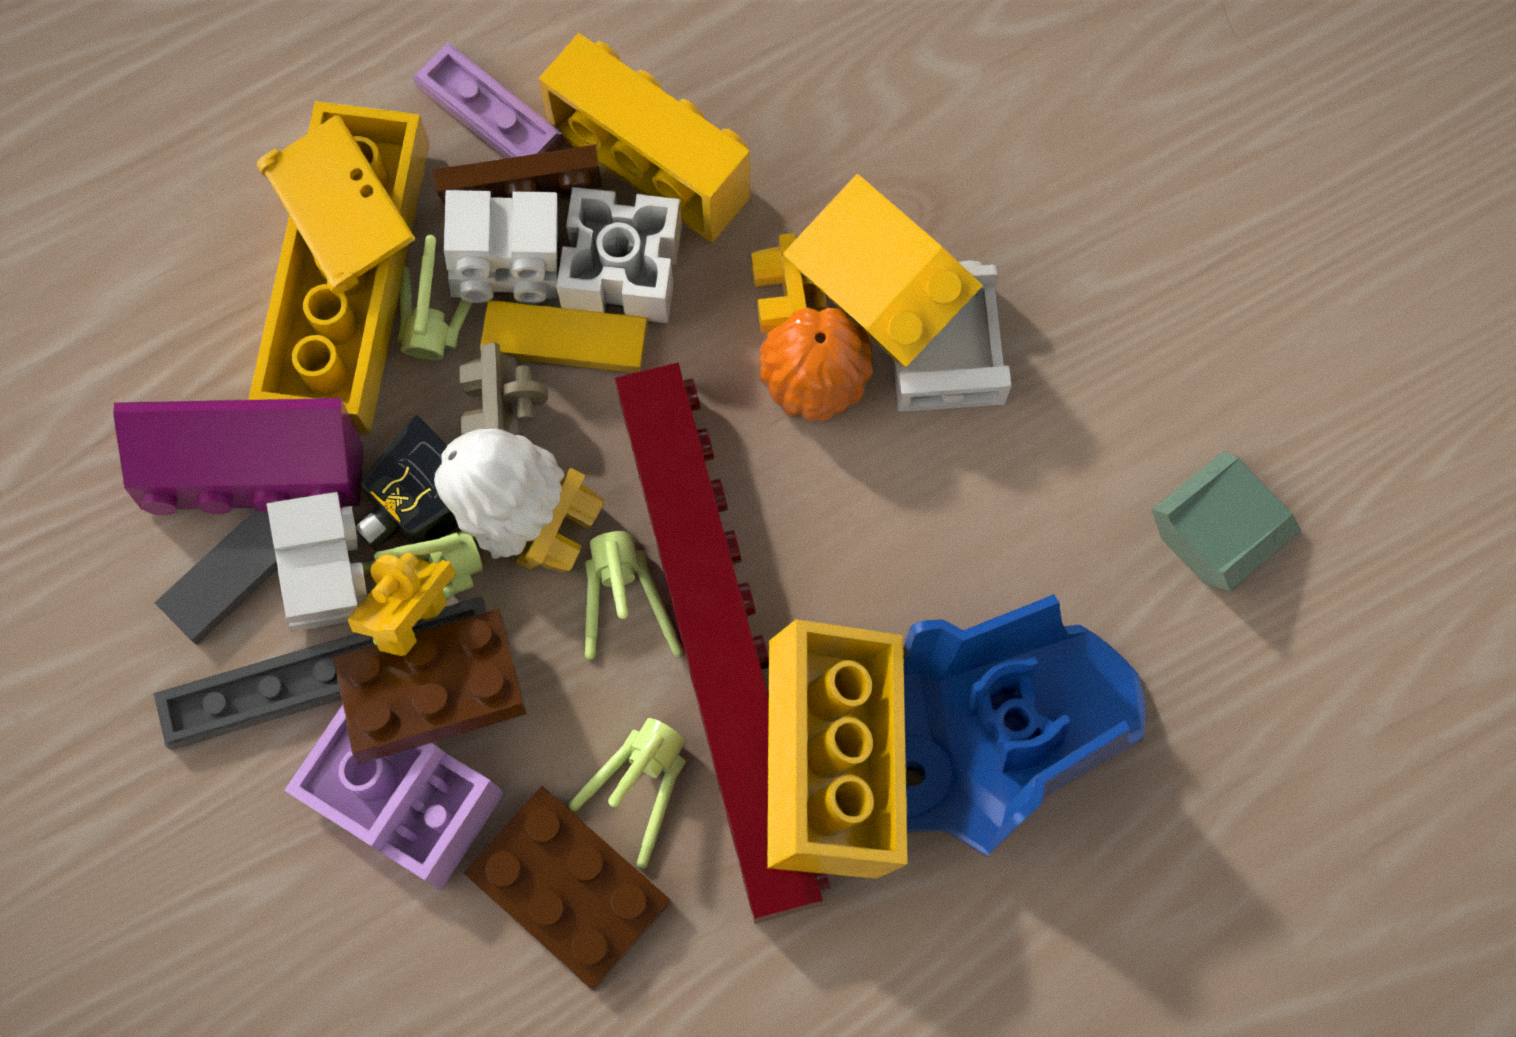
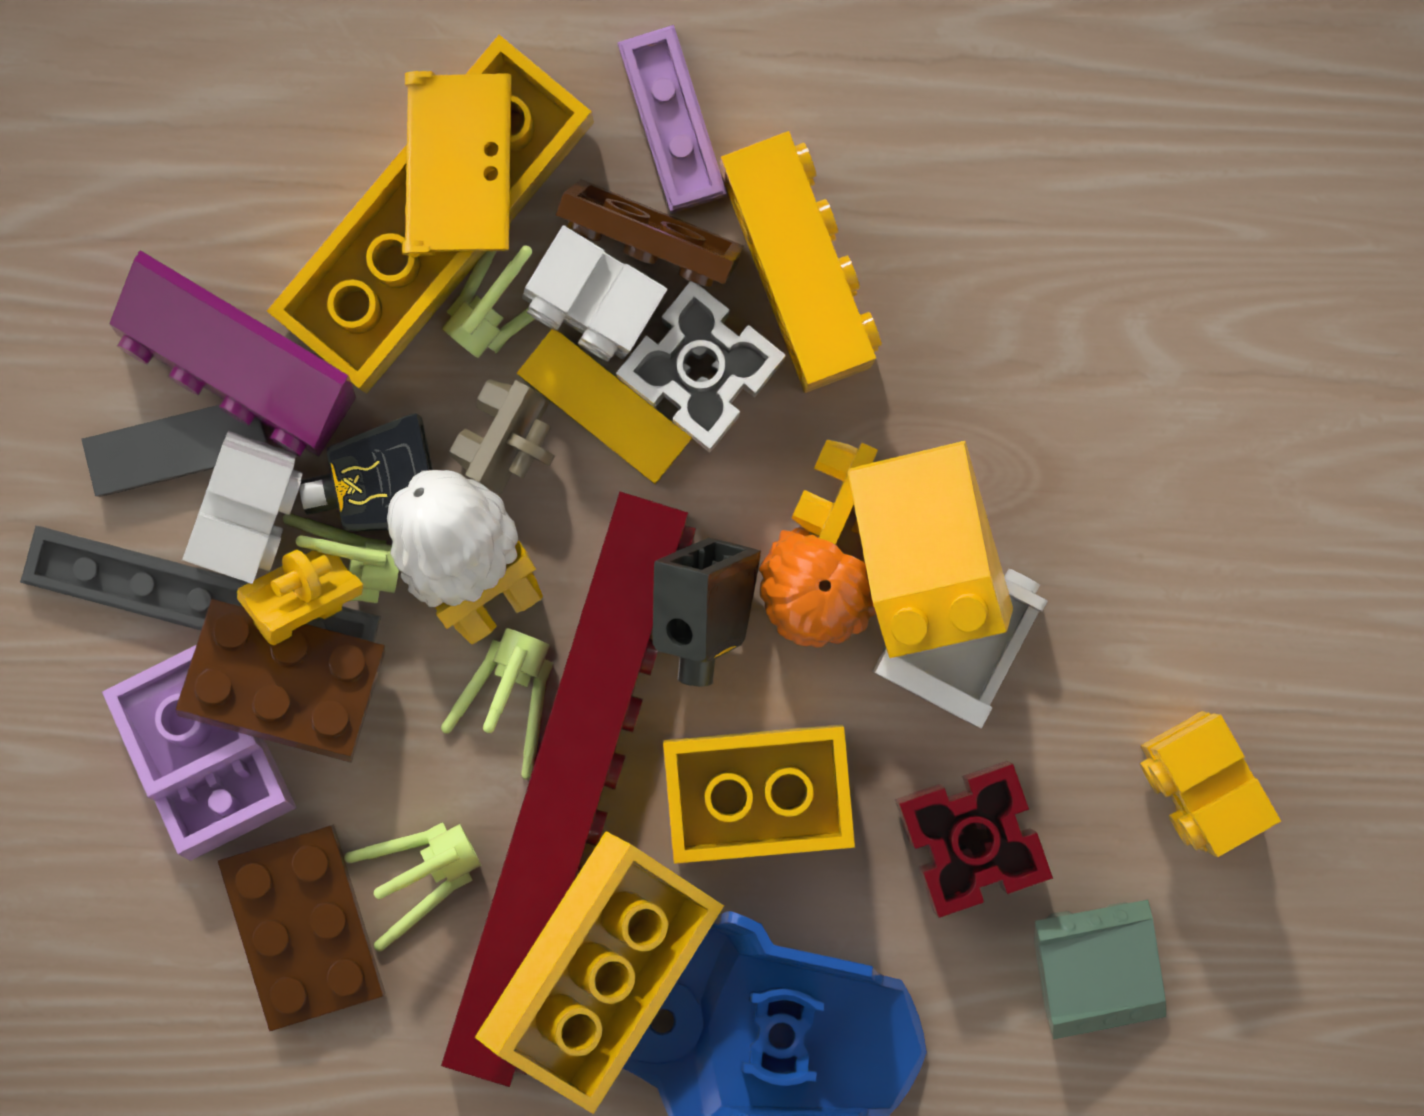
camera: 30 degrees right, 15 degrees up
(735, 426) = (703, 604): none -> pearl dark grey torso
(872, 540) = (758, 793): none -> yellow brick
(1056, 443) = (1007, 855): none -> dark red brick
(1211, 322) = (1209, 783): none -> yellow brick

